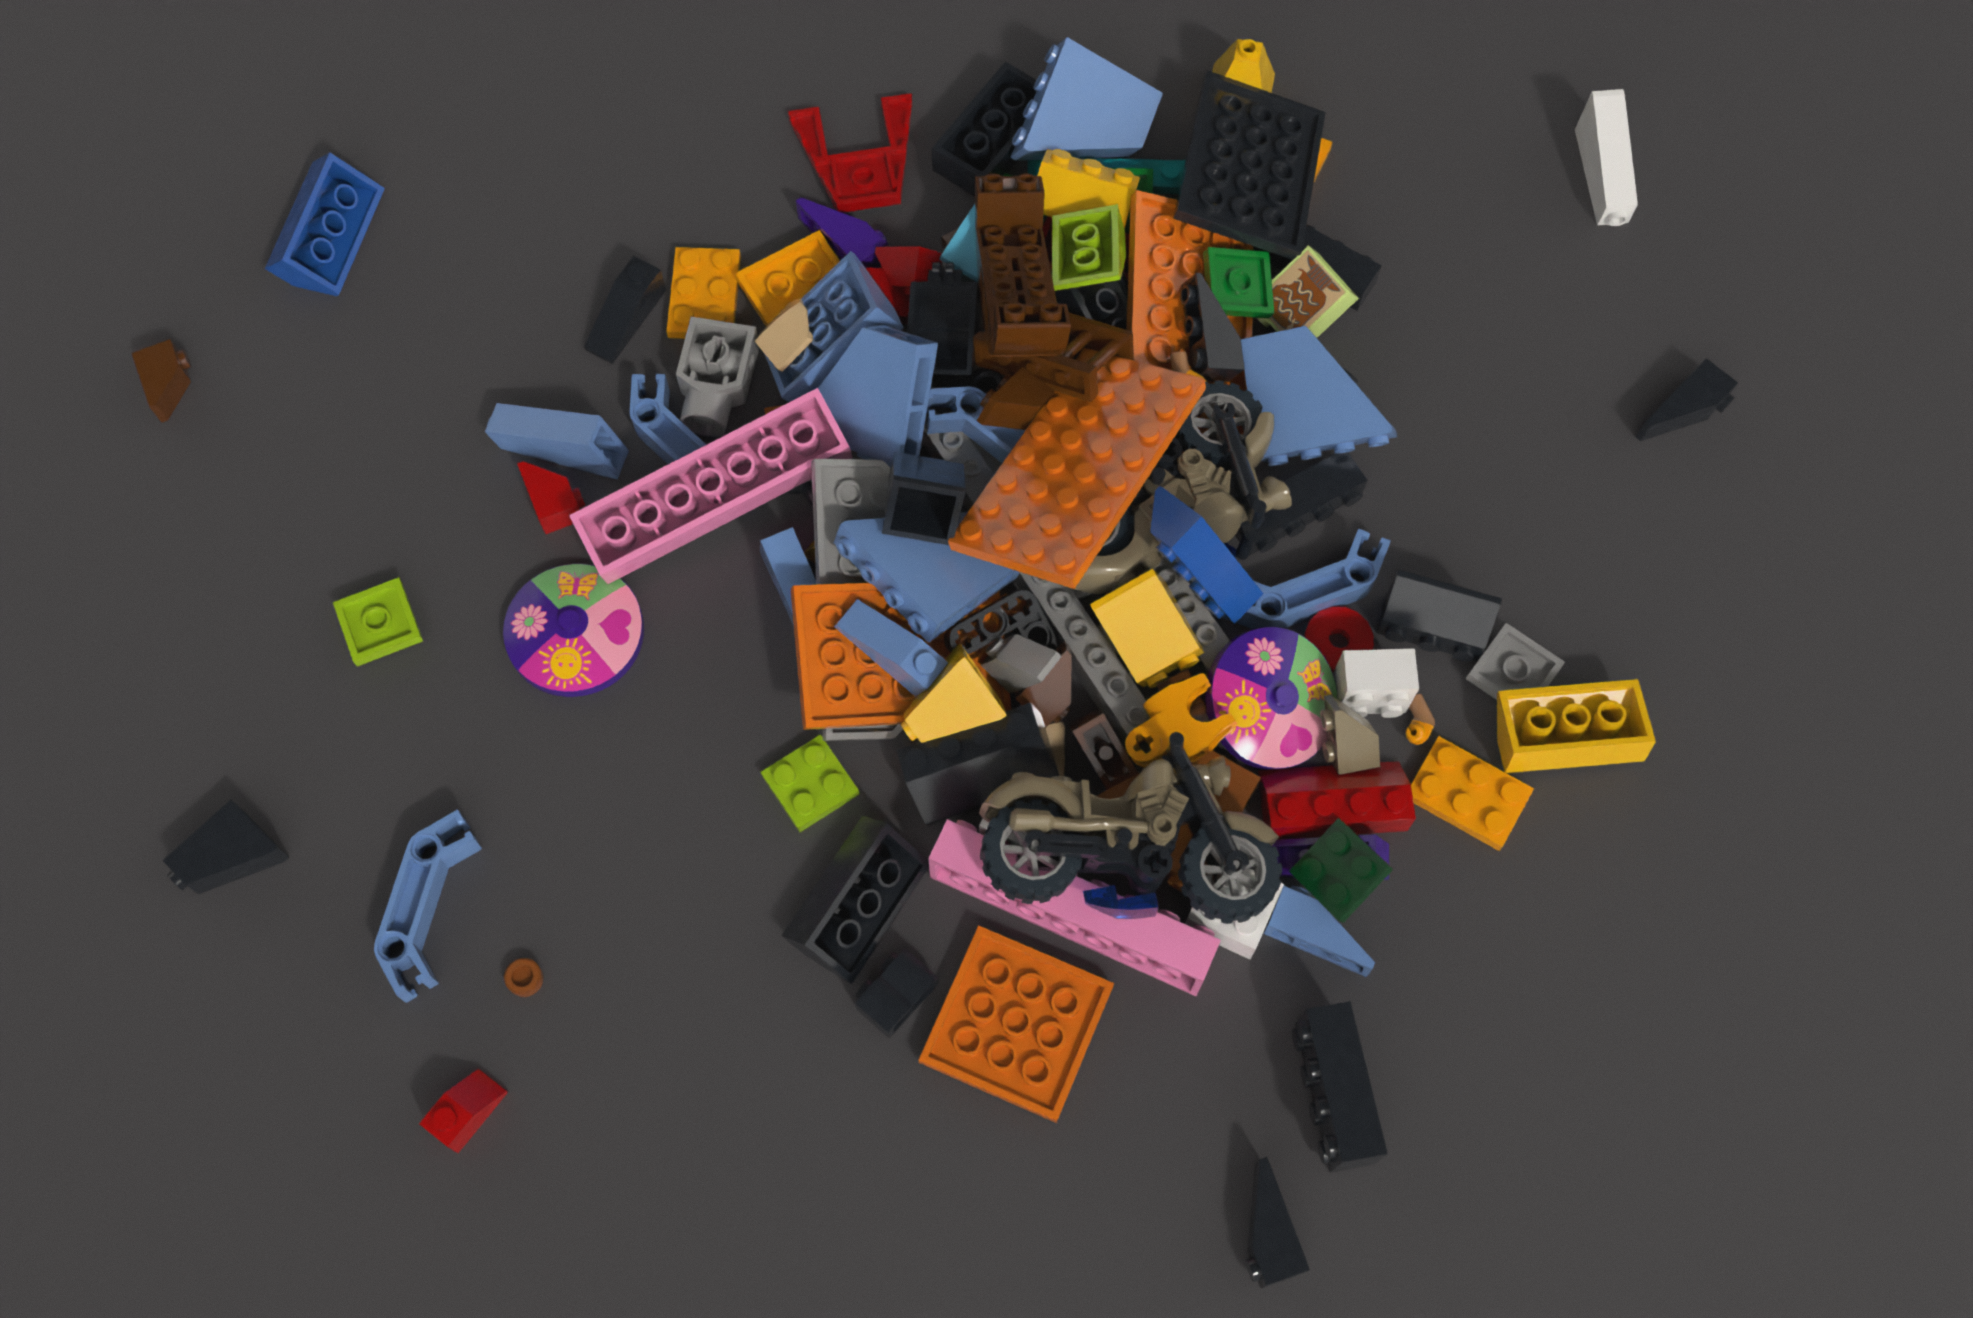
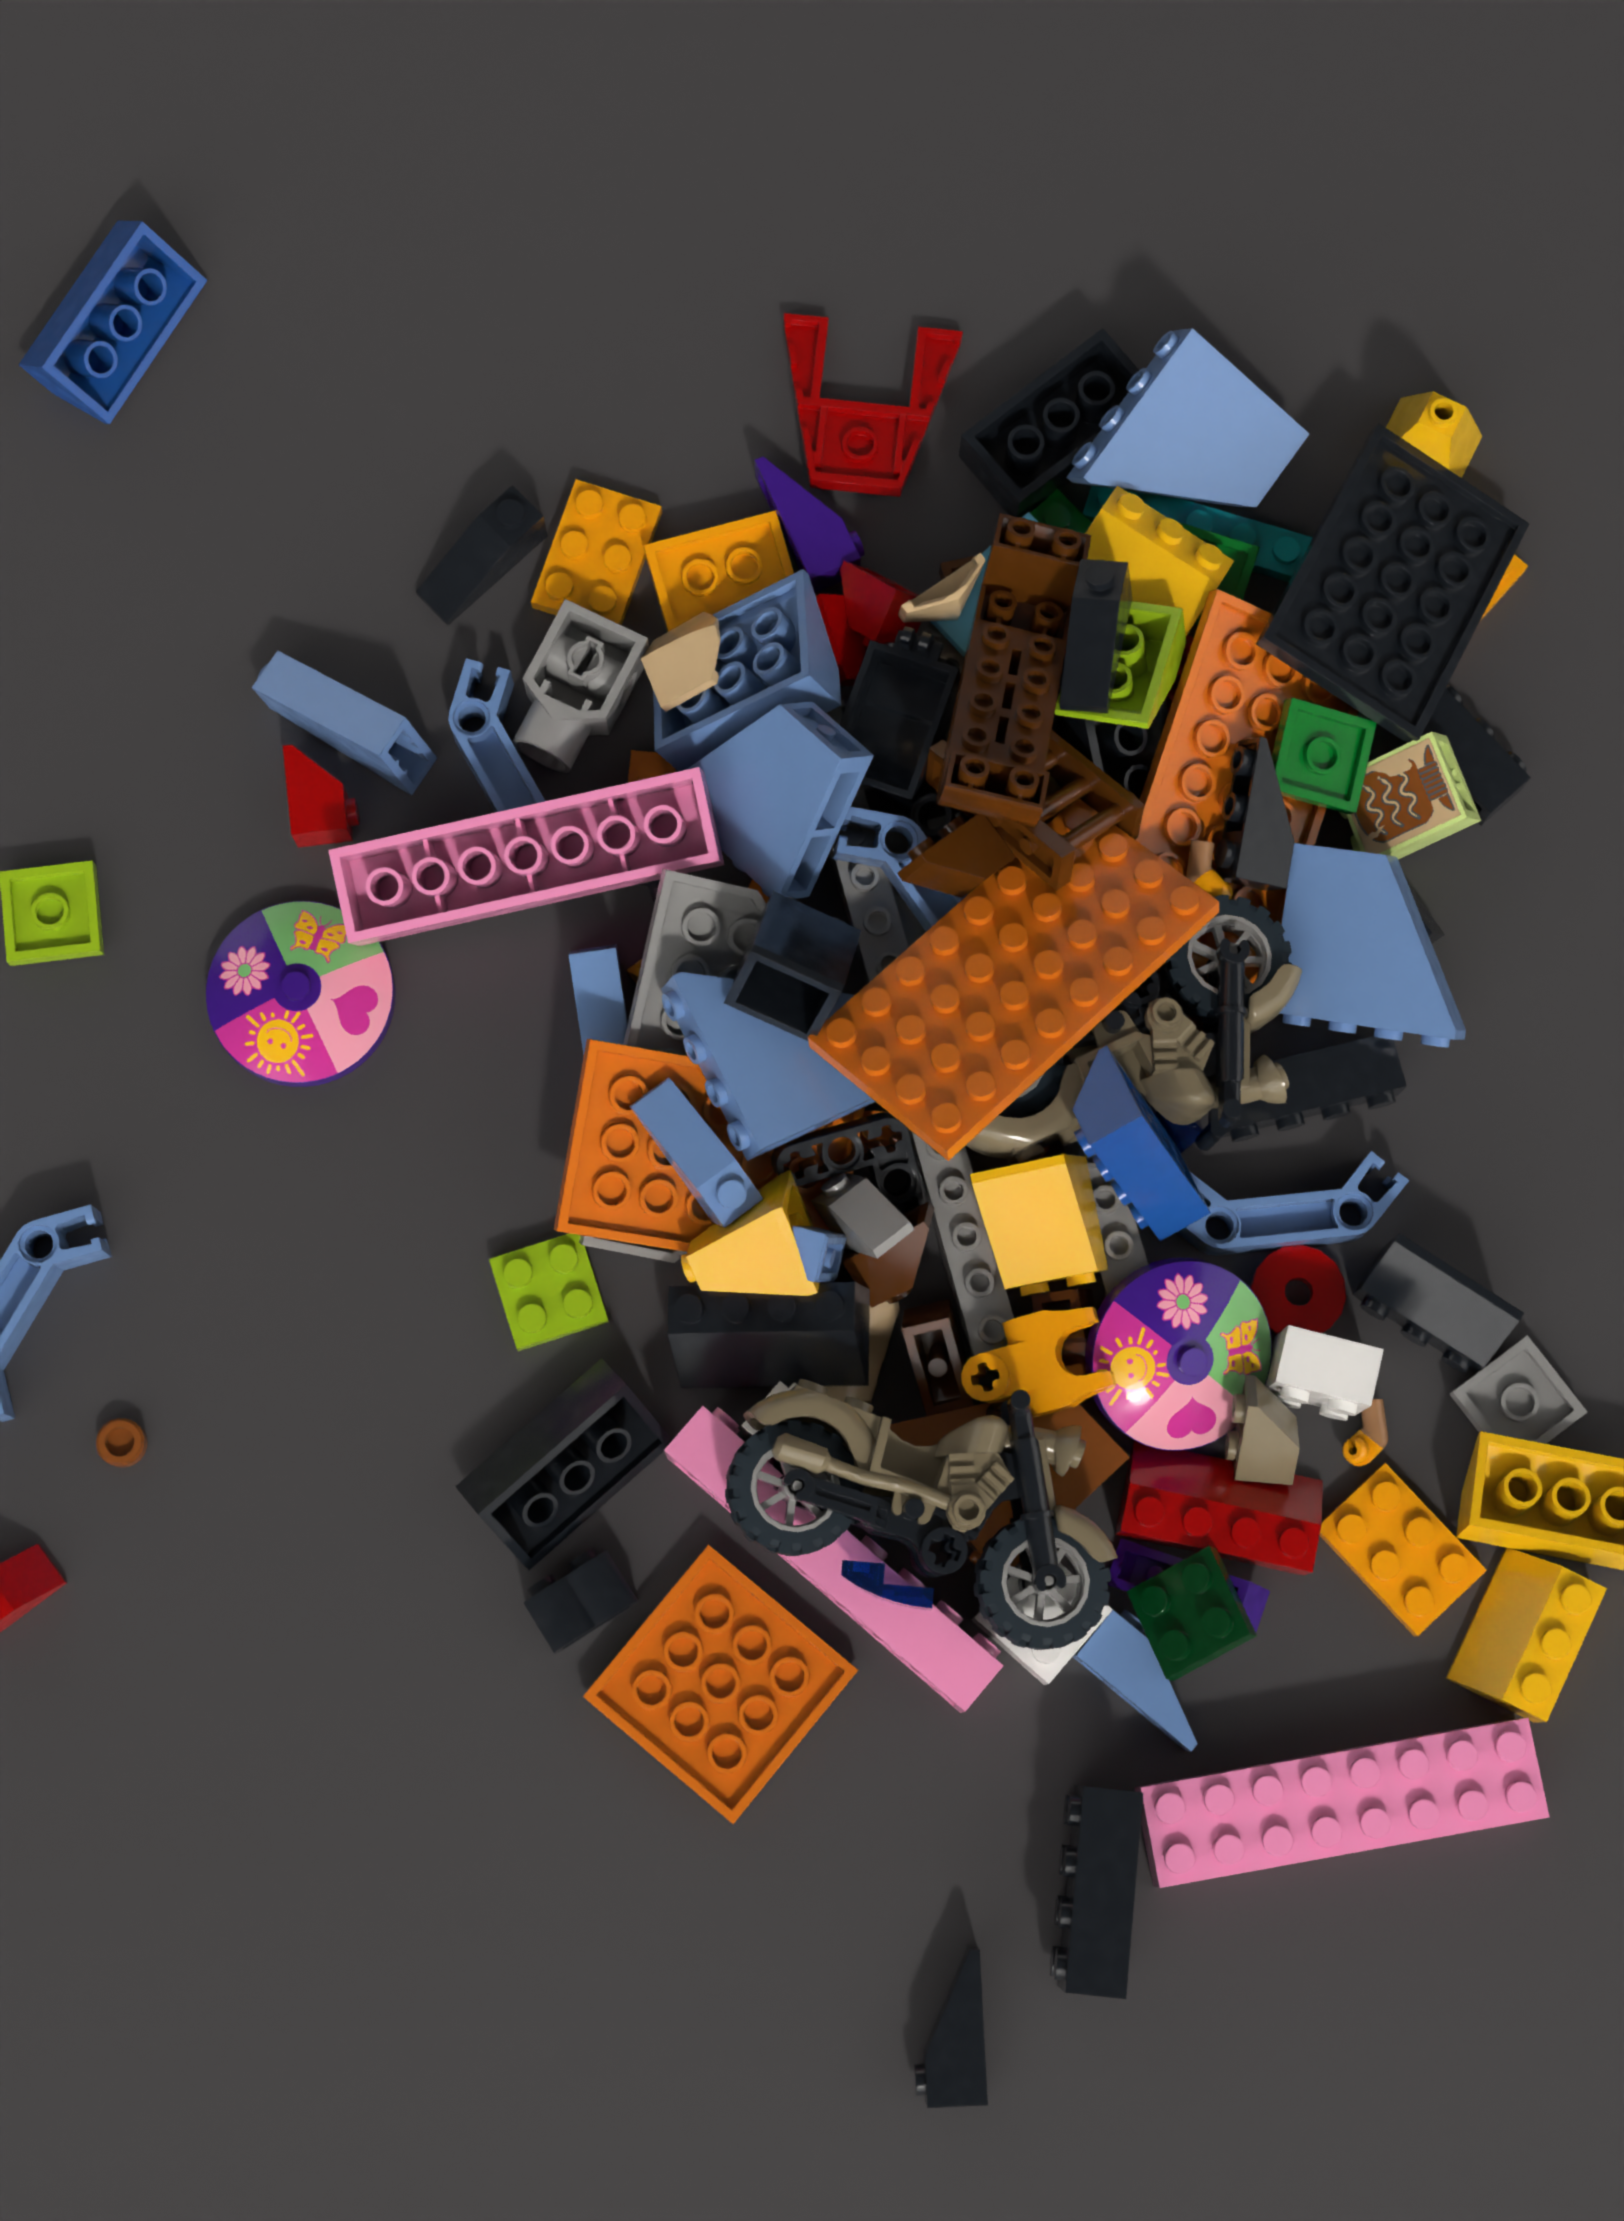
camera: 15 degrees right, 10 degrees up
(954, 241) = (946, 598): none -> tan slope
(1000, 685) = (820, 1252): none -> medium blue slope
(1065, 231) = (1095, 635): none -> black slope
(1490, 976) = (1341, 1802): none -> bright pink brick
(1577, 824) = (1526, 1634): none -> yellow slope

